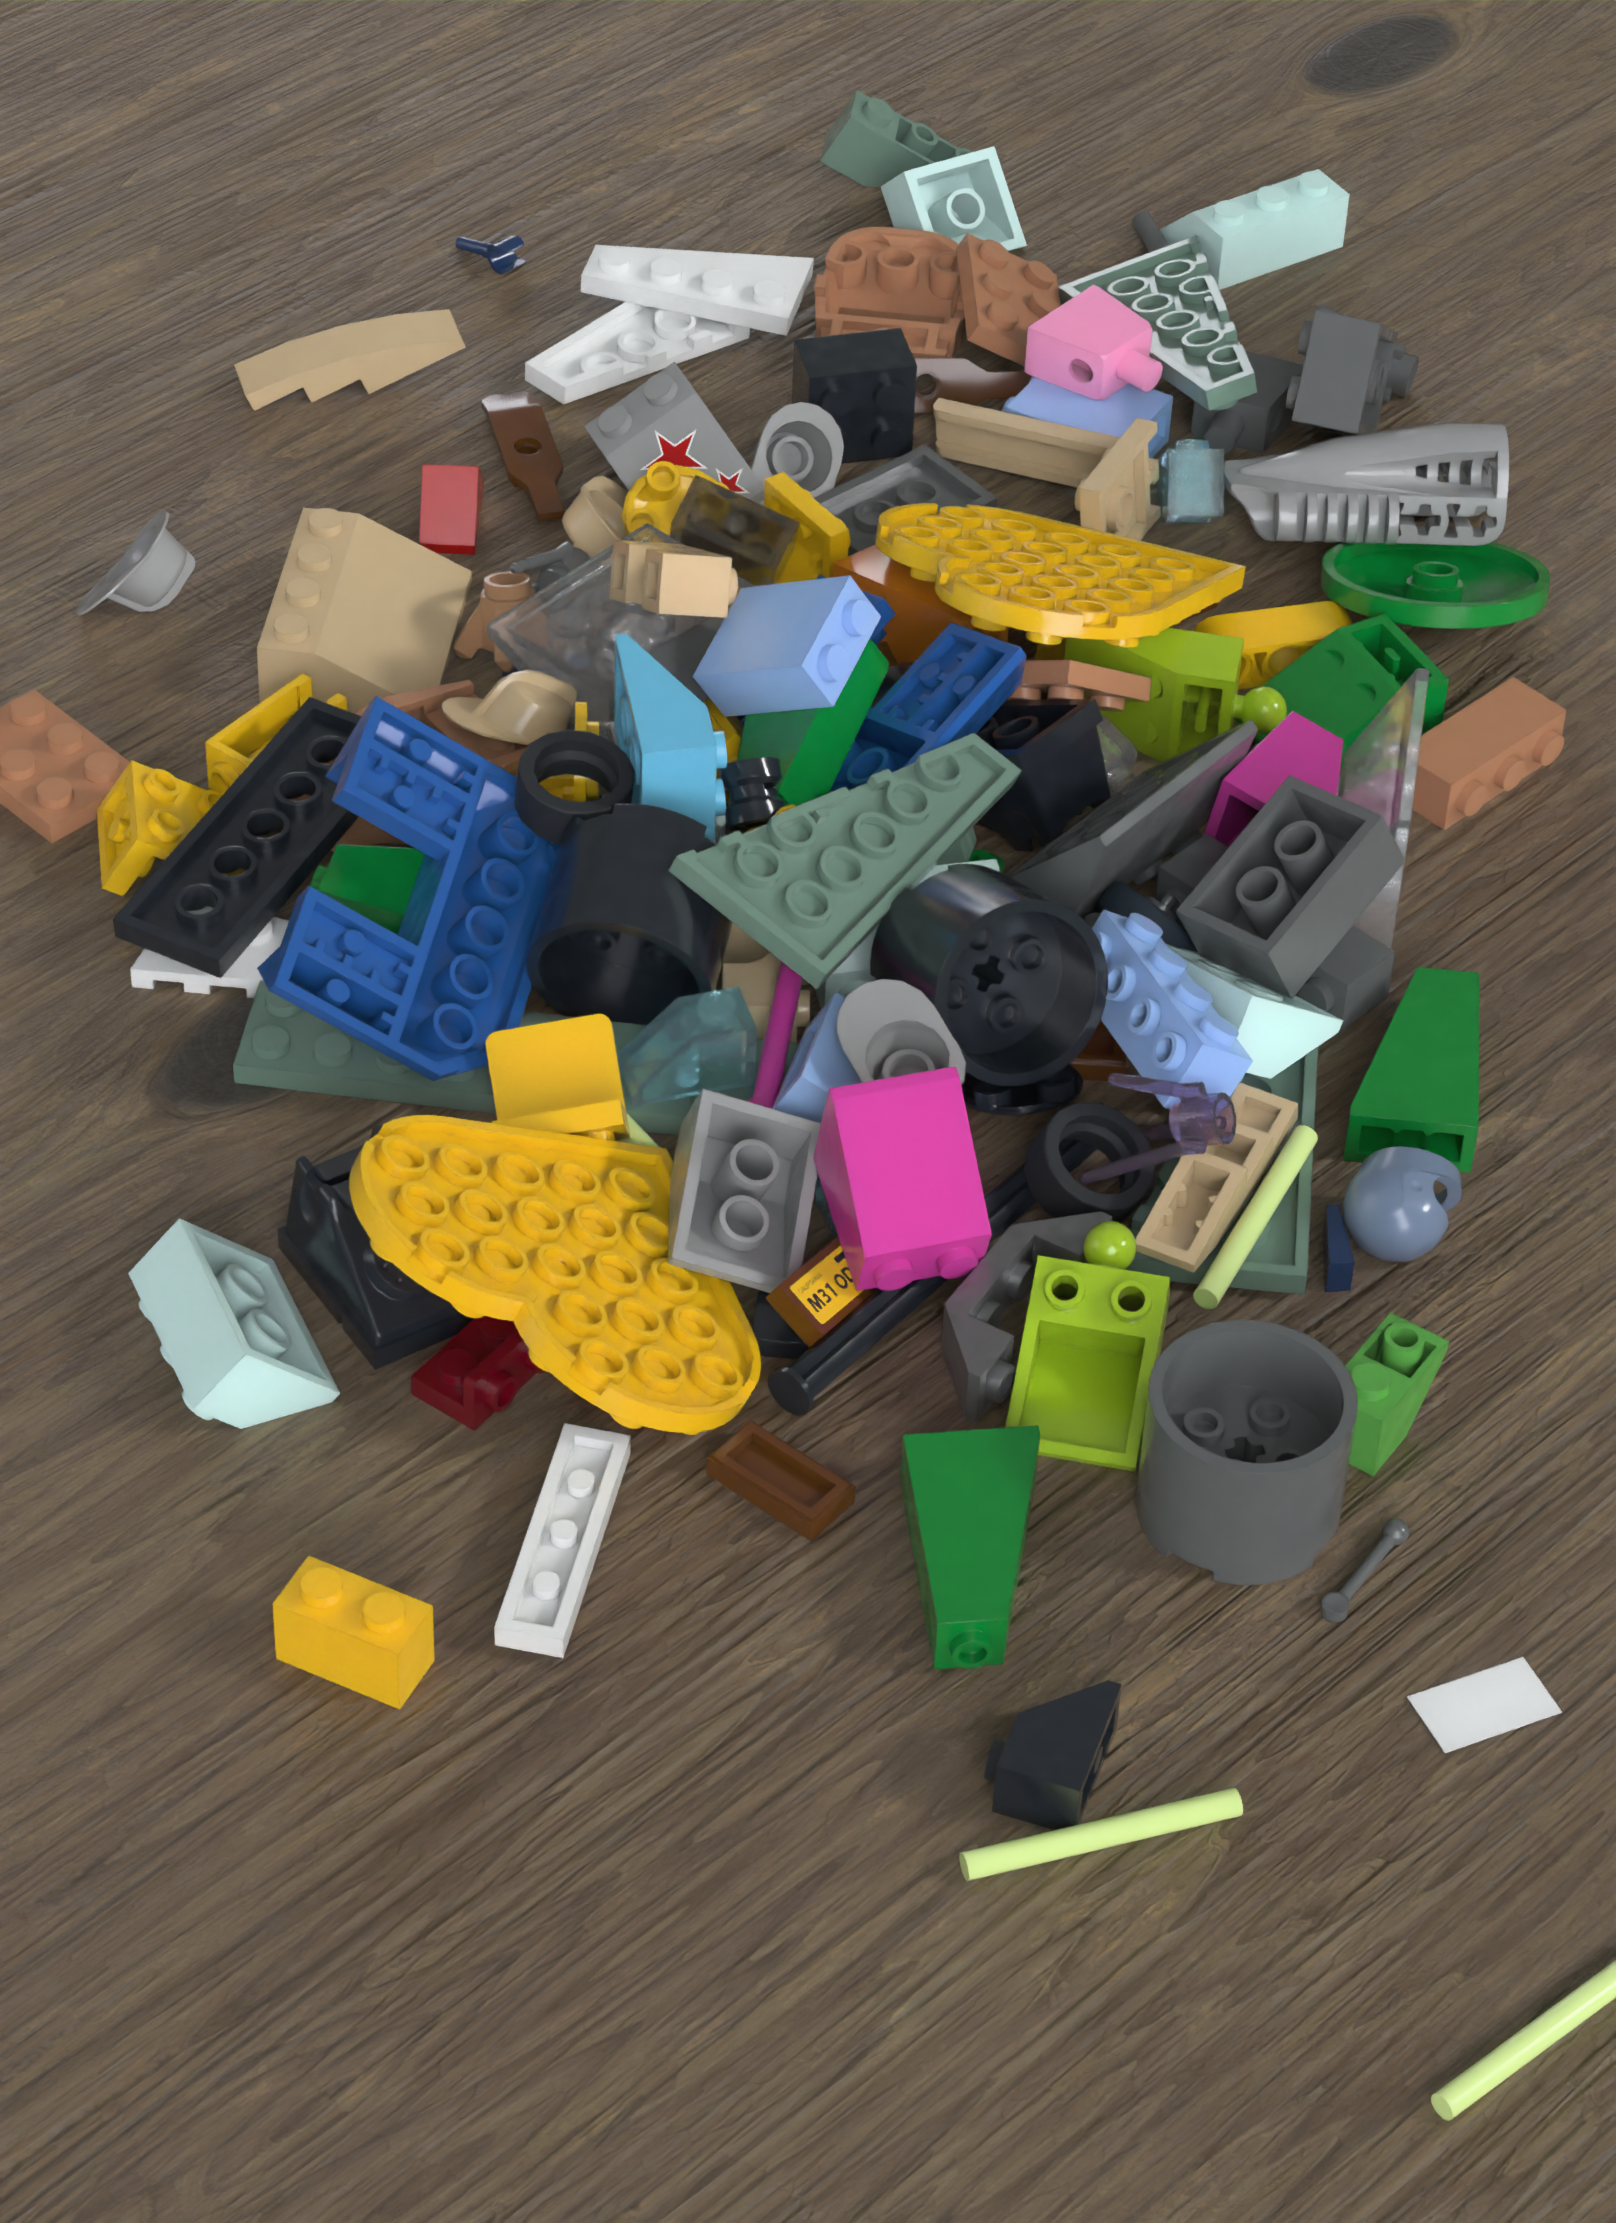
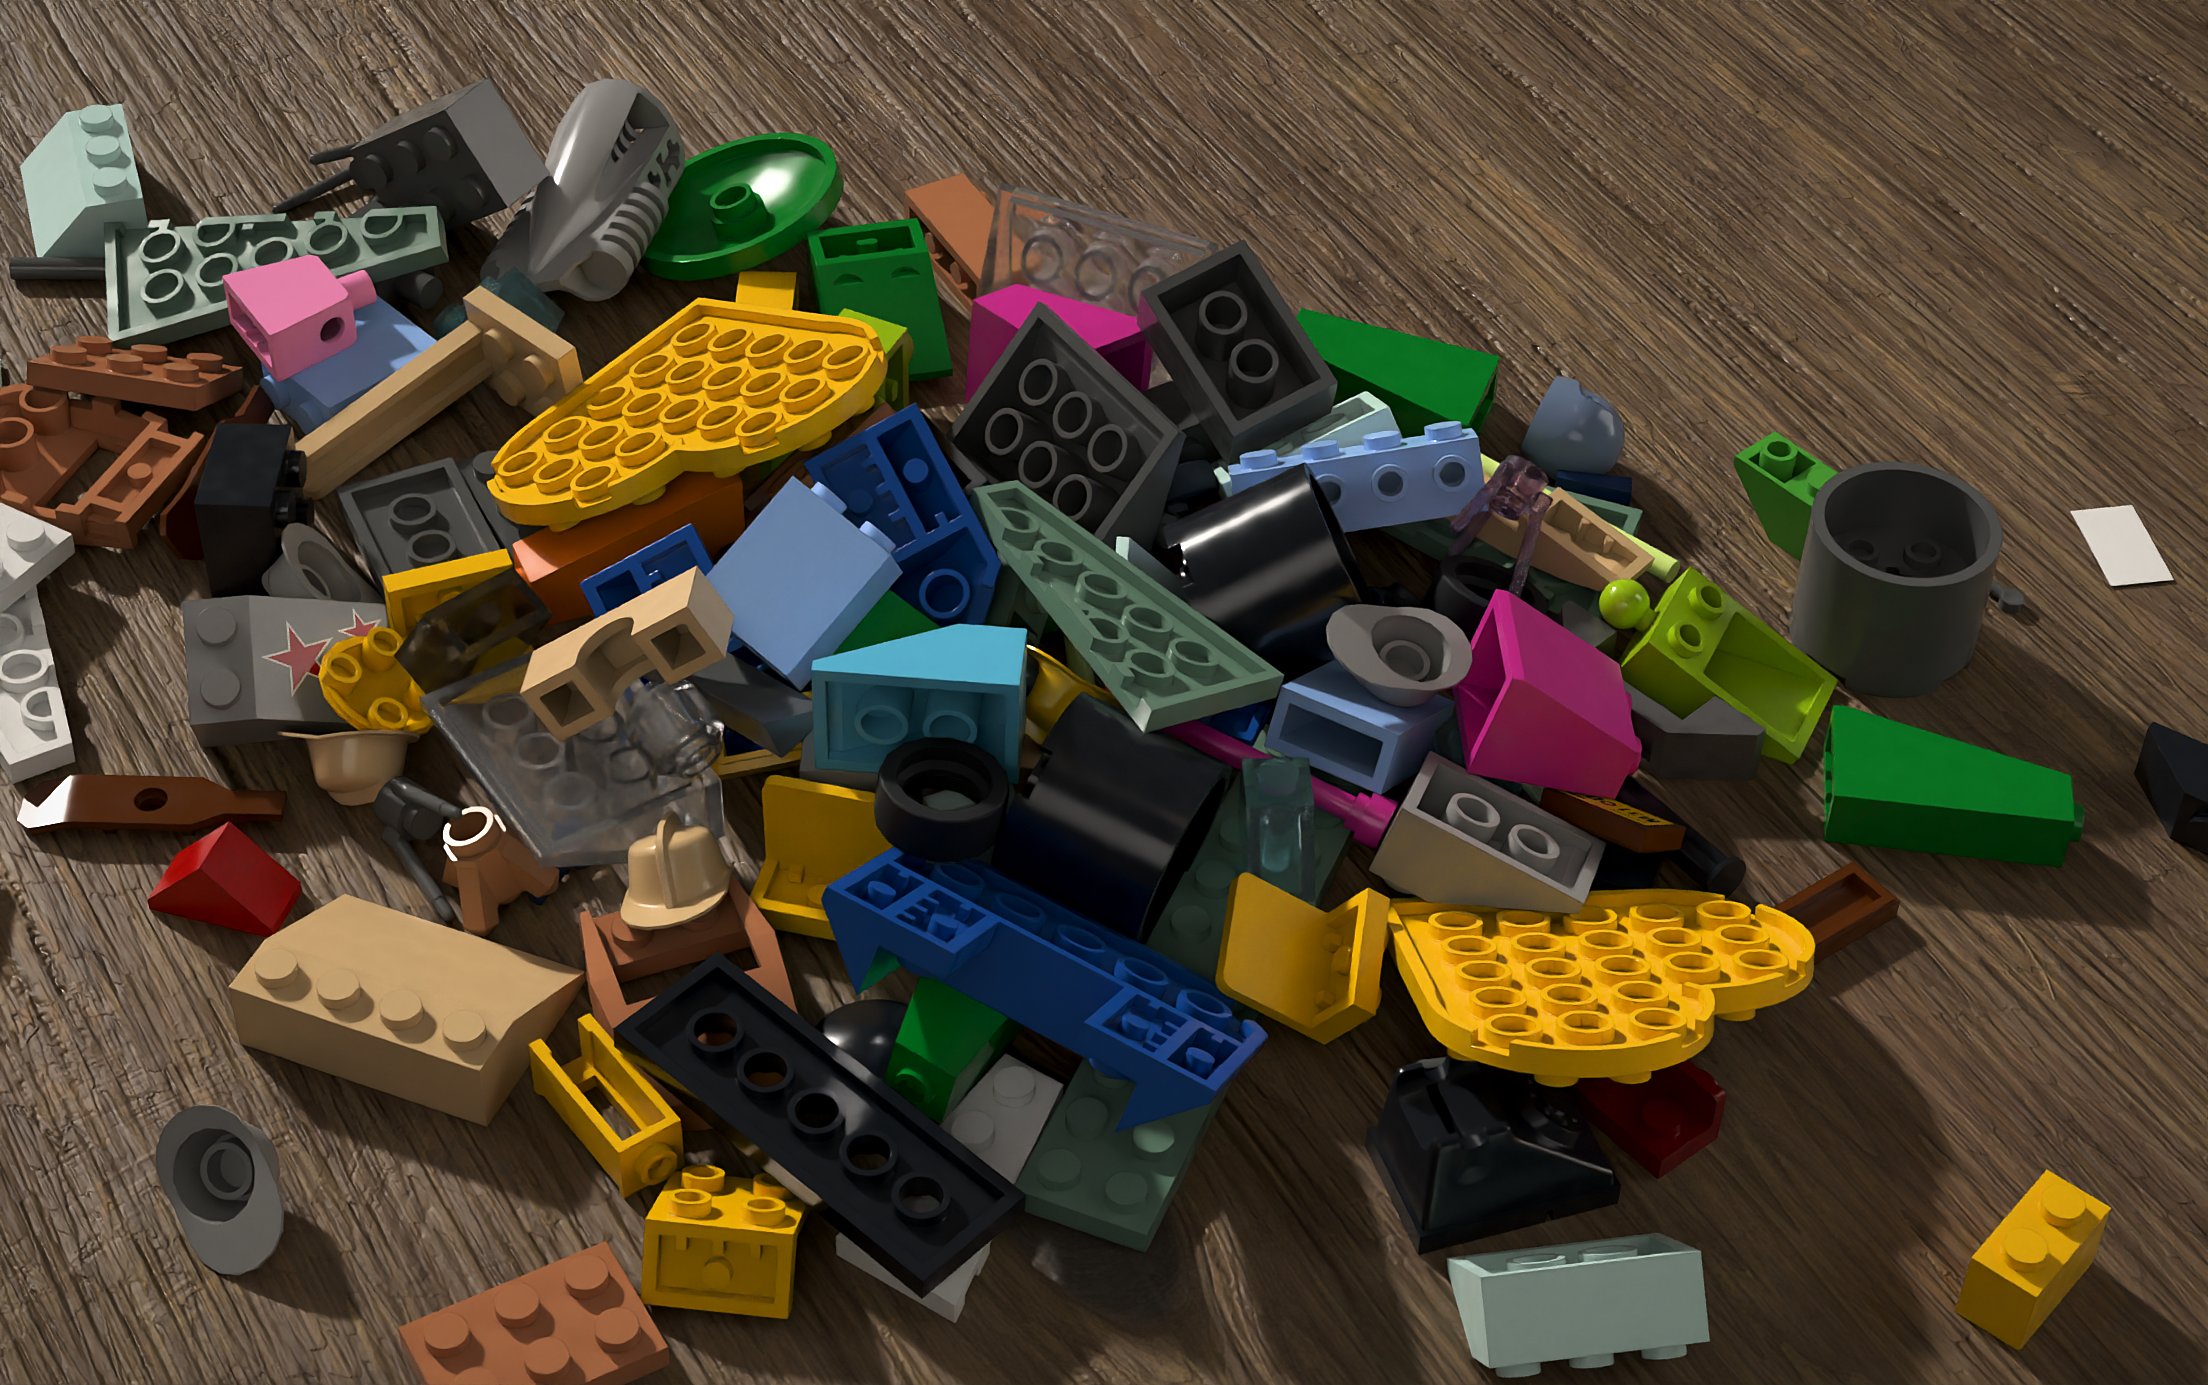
camera: 75 degrees left, 0 degrees up
(562, 1541) = (1904, 1082): white plate -> none

